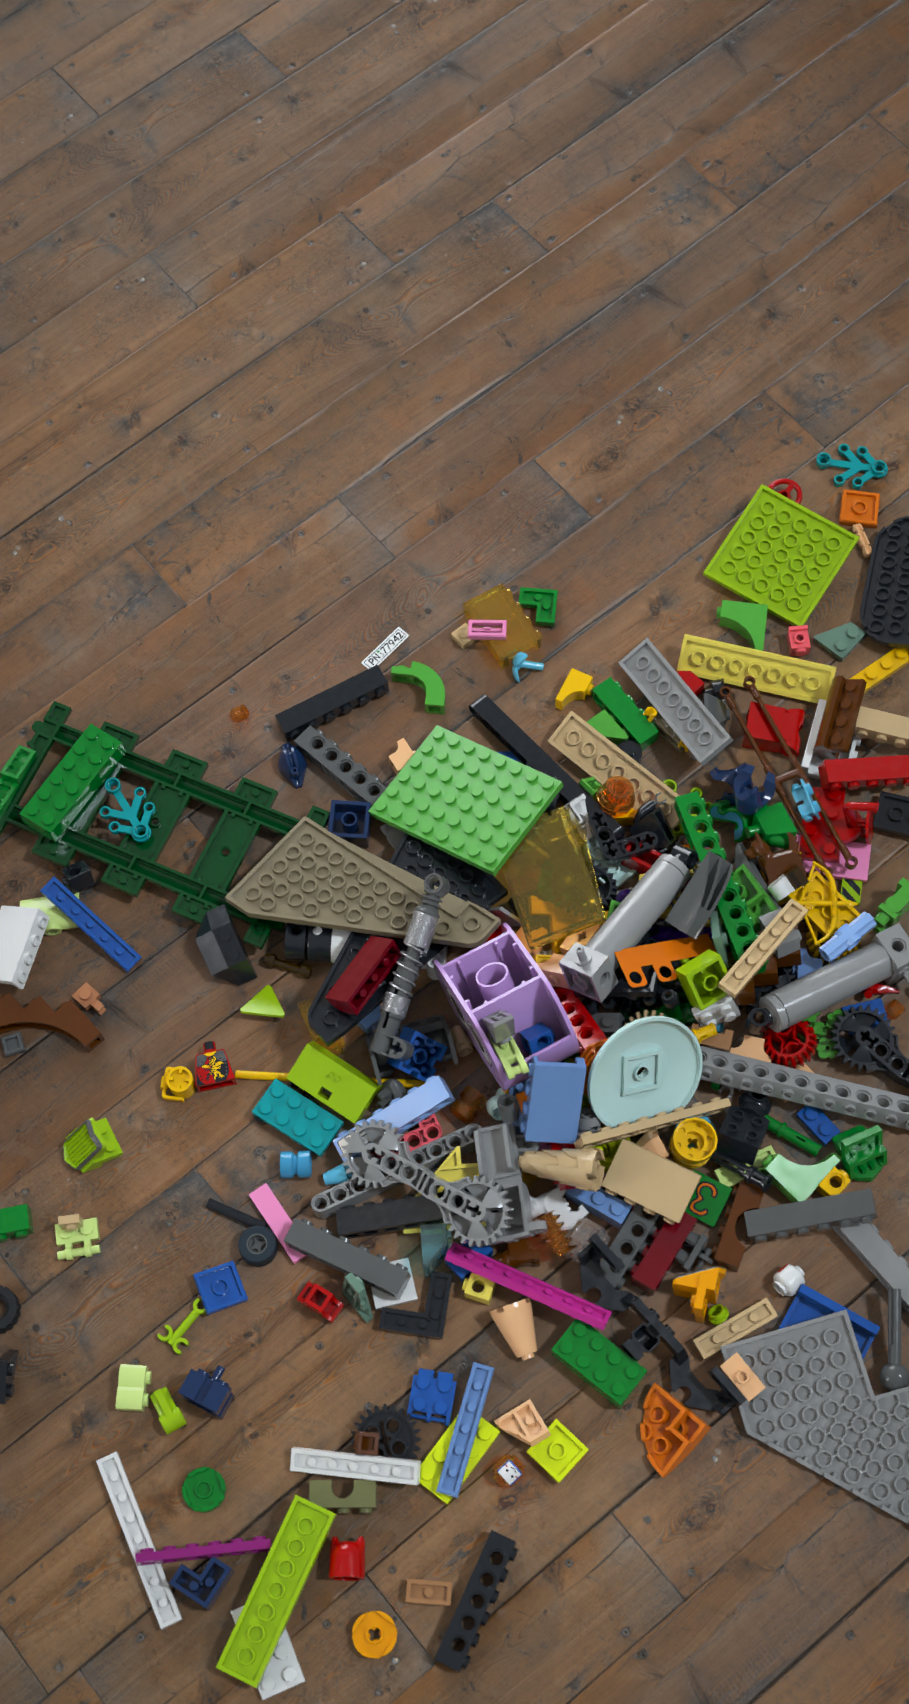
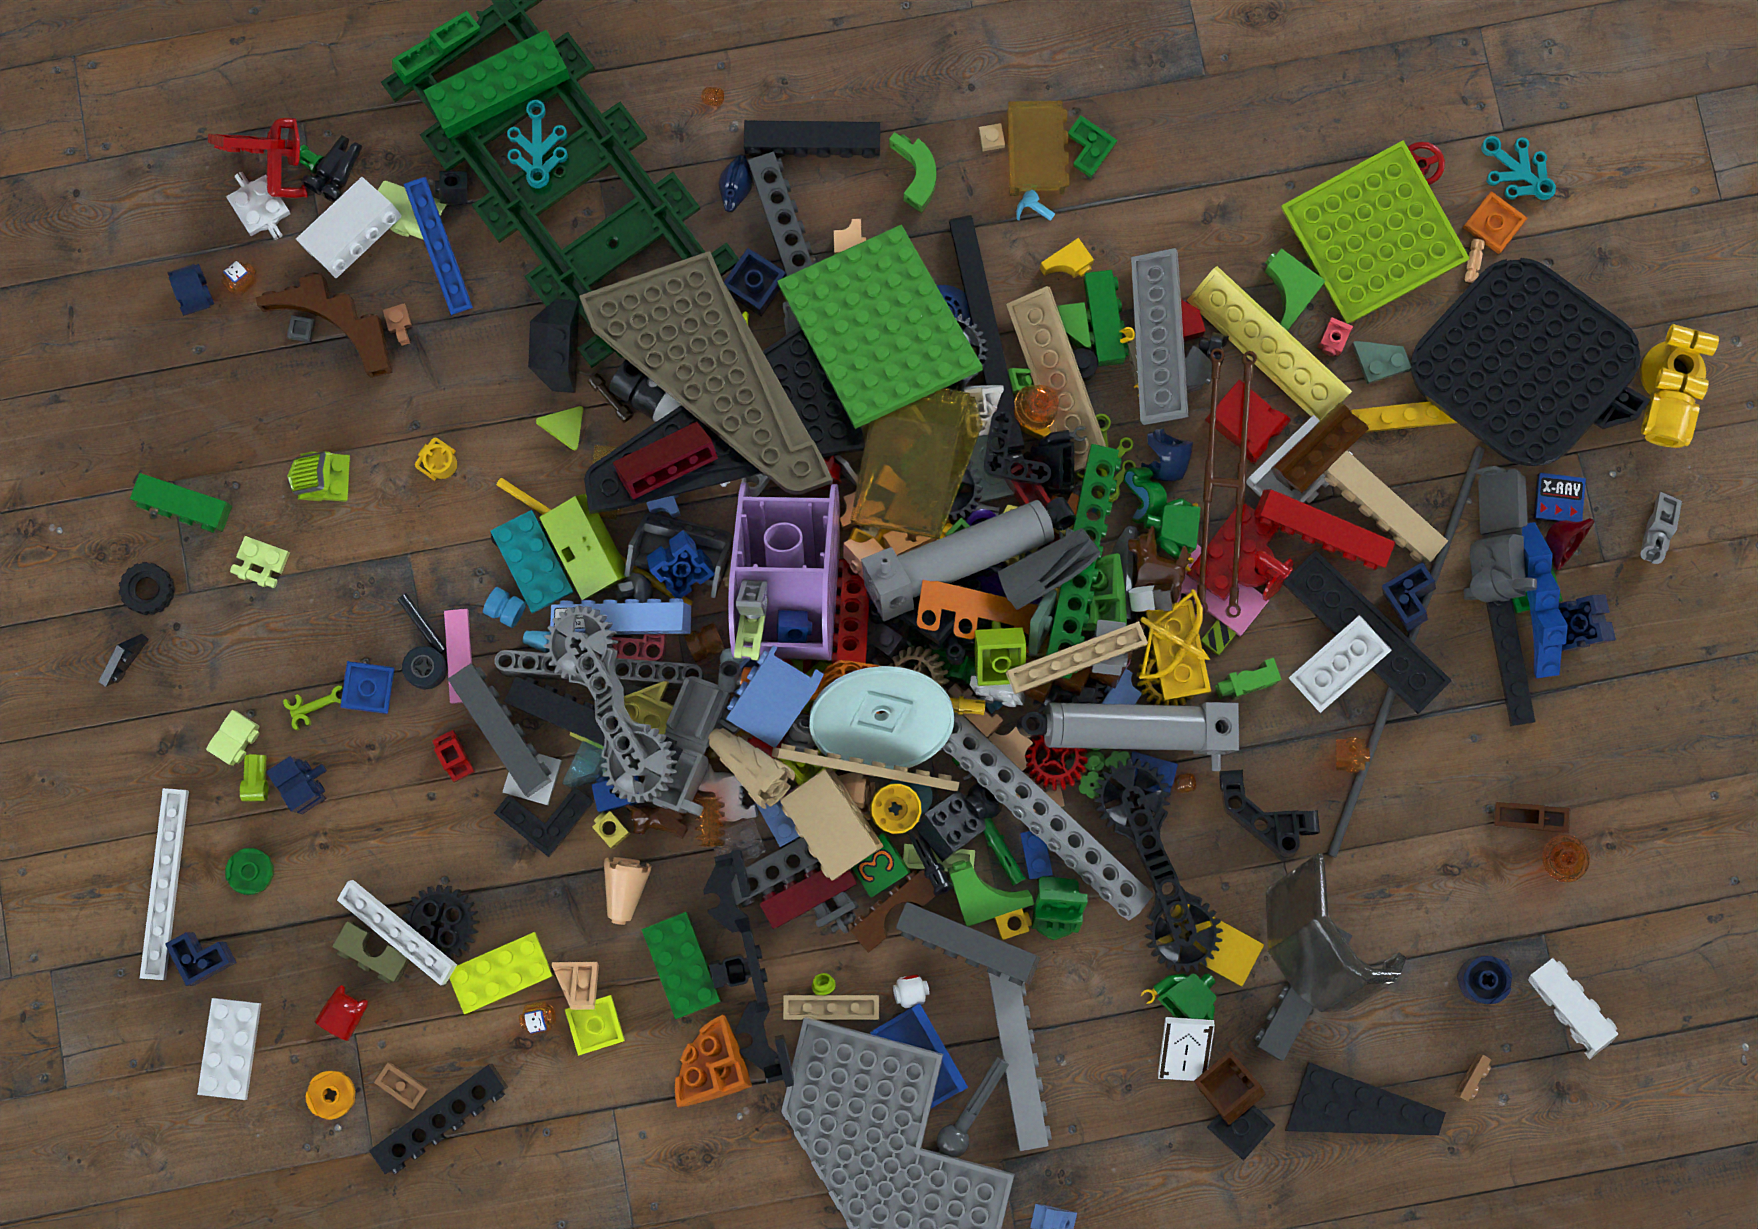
camera: 25 degrees right, 15 degrees up
(70, 1222) = (257, 545): tan plate -> none
(195, 1552) = (206, 926): magenta plate -> none
(213, 1069) = (478, 464): torso -> none
(276, 1591) = (260, 1006): lime plate -> none
(356, 1295) = (489, 767): sand green wing -> none
(366, 1443) = (418, 917): reddish brown slope -> none
(385, 648) = (902, 106): white sticker -> none
(397, 999) = (684, 502): dark grey piece -> none
(432, 1396) = (508, 905): blue plate -> none
(465, 1430) = (518, 957): medium blue tile -> none
(487, 632) = (1011, 154): bright pink tile -> none
(528, 1286) = (655, 859): dark pink plate -> none
(701, 1287) = (823, 952): light orange piece -> none
(742, 1376) = (804, 1061): light nougat brick -> none
(750, 800) = (1169, 488): dark blue piece -> none
(809, 807) = (1228, 513): medium azure hinge -> none
(847, 937) = (1176, 688): light blue piece -> none
(879, 989) = (1183, 755): red bar -> none

